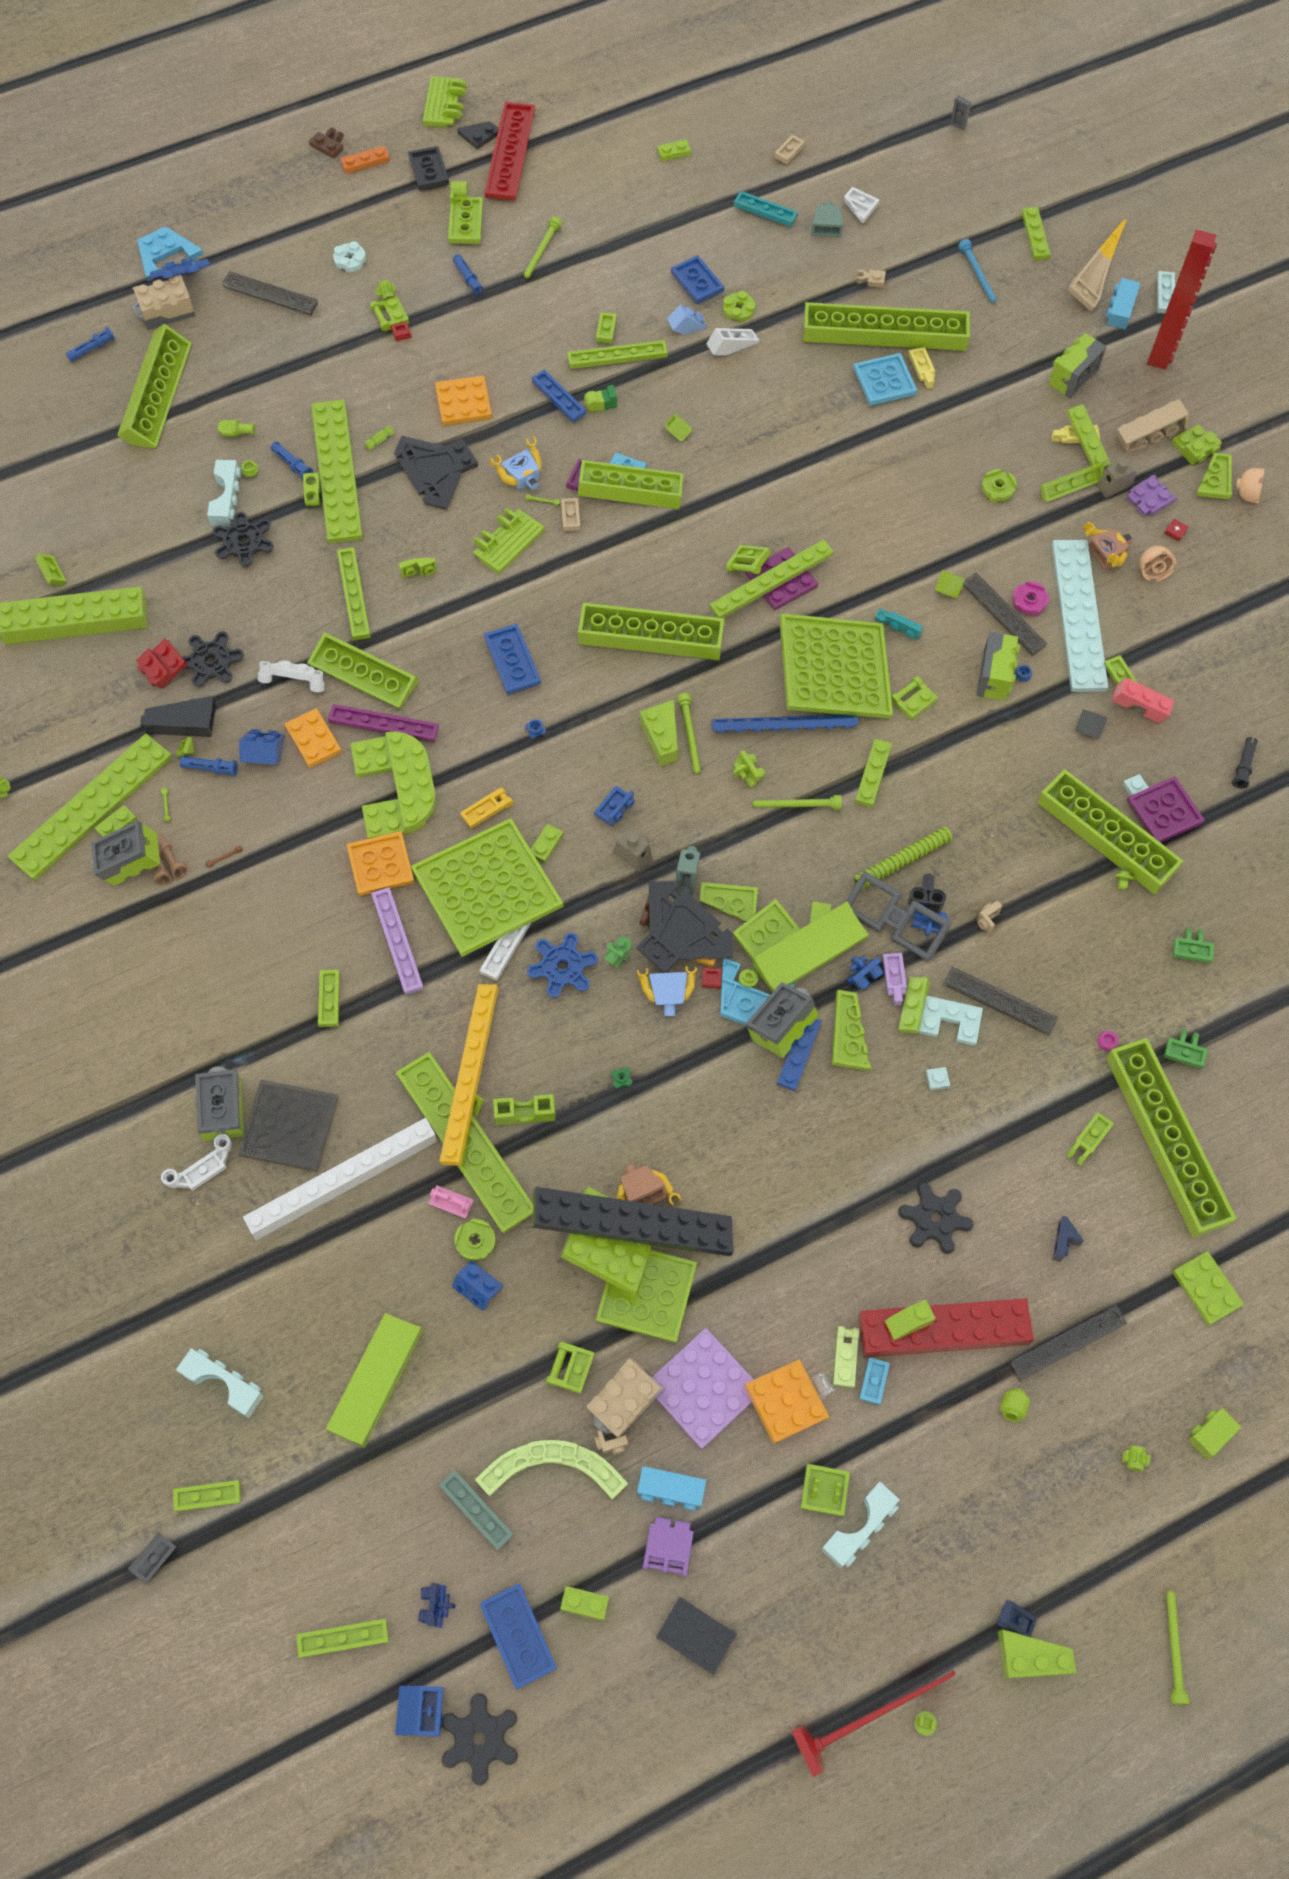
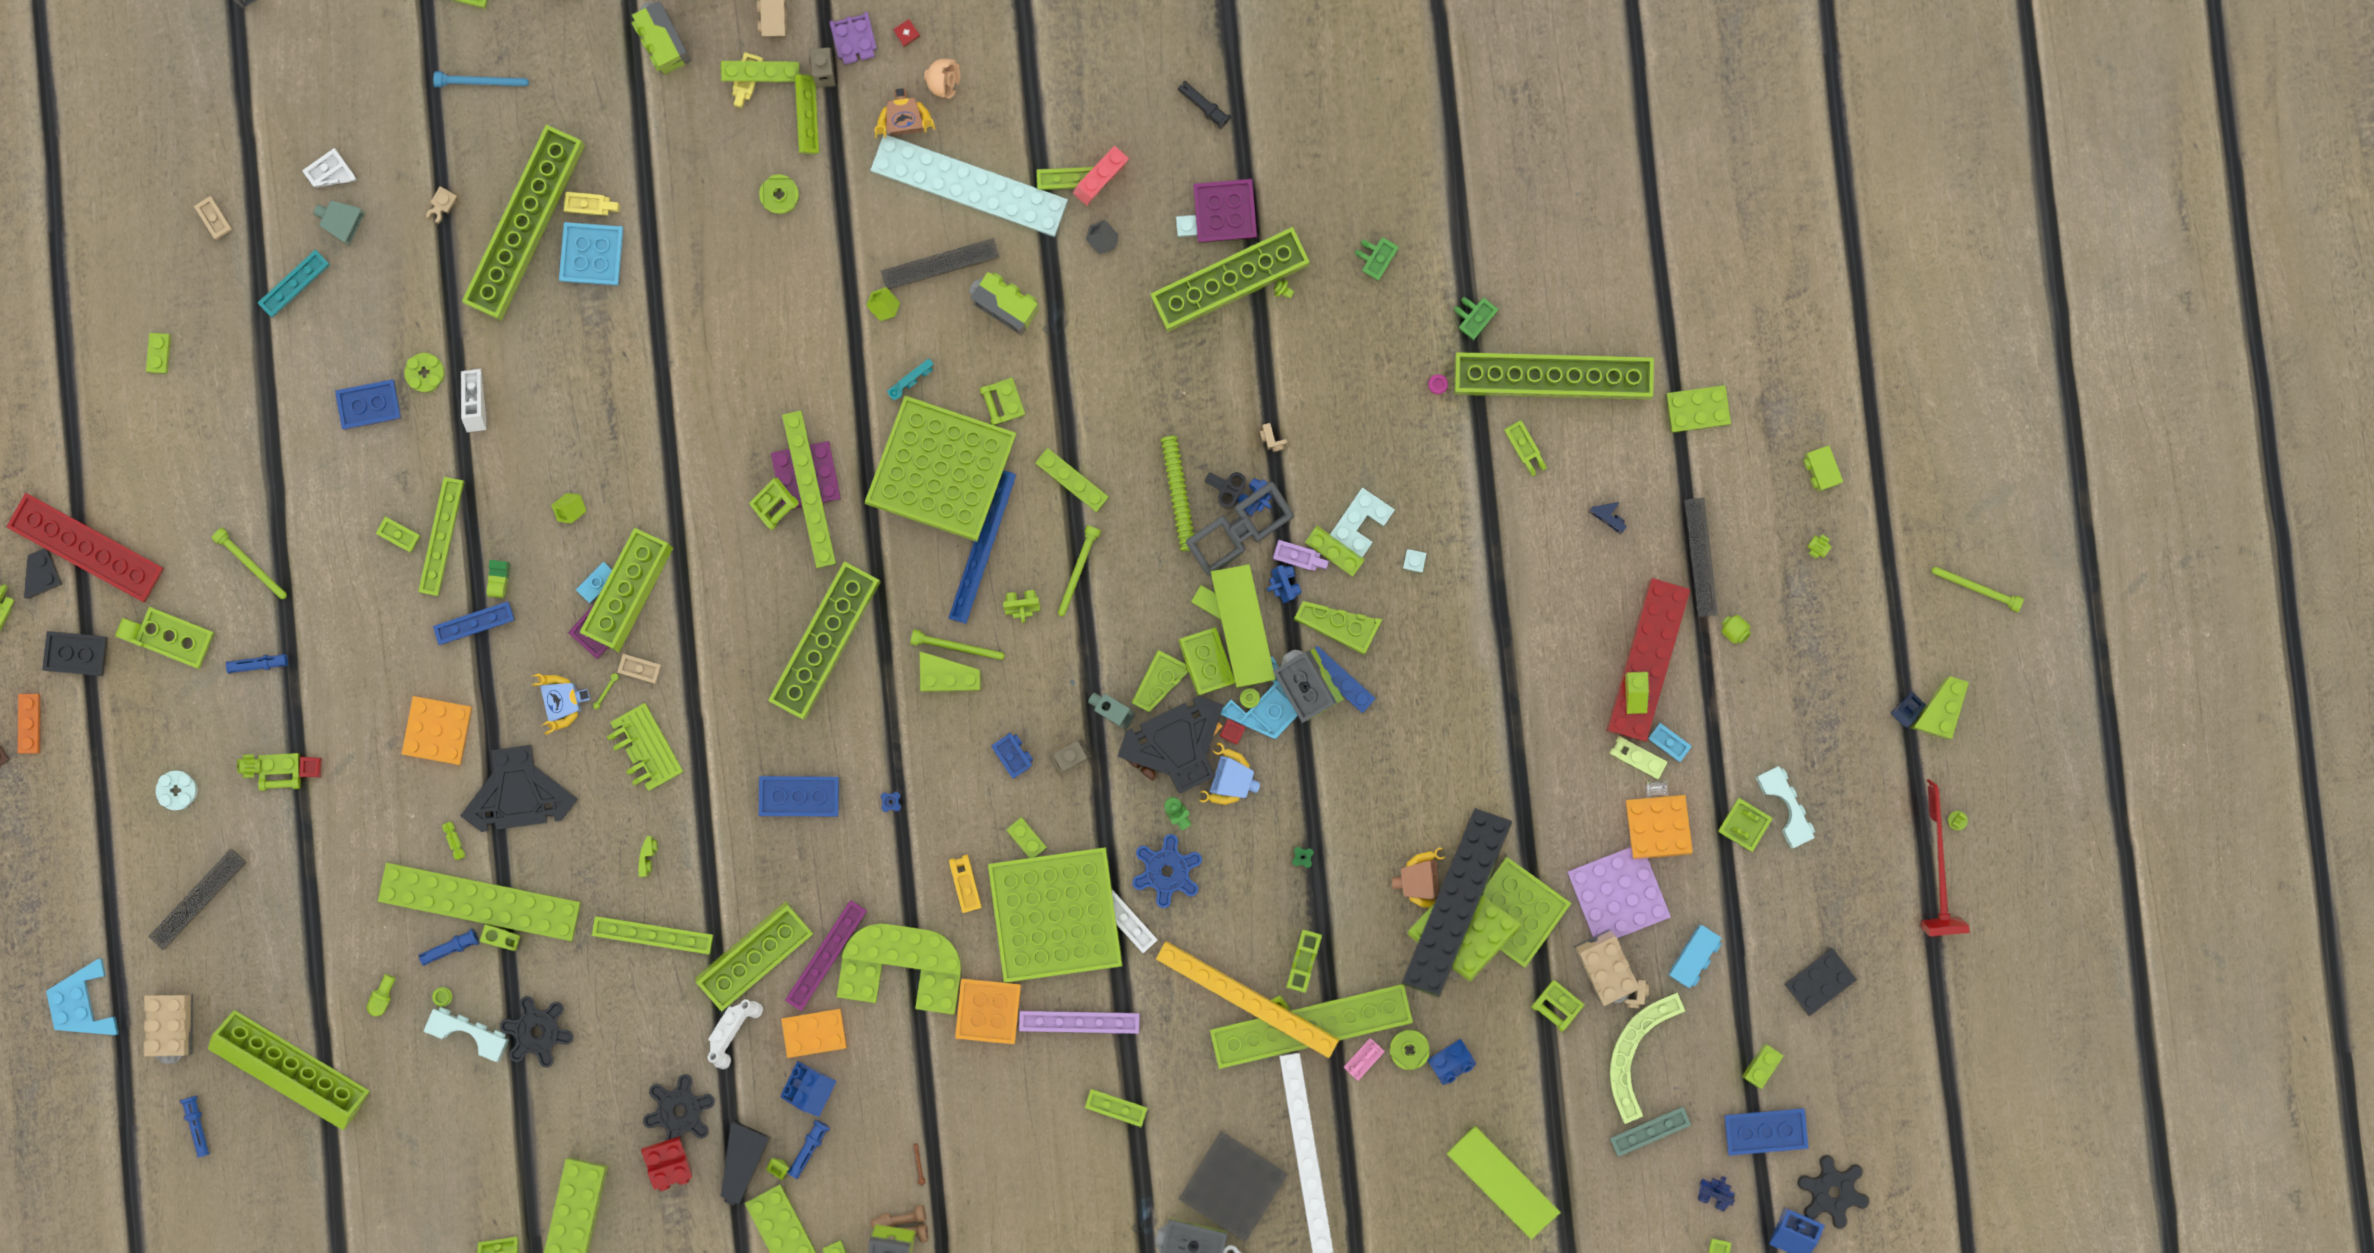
camera: 65 degrees left, 20 degrees up
(164, 791) = (819, 1203): lime hinge -> none
(186, 266) = (137, 985): blue plate -> none
(668, 1546) = (1741, 977): medium lavender plate -> none
(686, 321) = (425, 441): light blue slope -> none
(929, 1229) = (1530, 622): black plate -> none
(1000, 1001) = (1361, 467): clear smoke plate -> none
(1025, 669) = (1017, 272): blue plate -> none
(1030, 607) = (932, 216): dark pink plate -> none

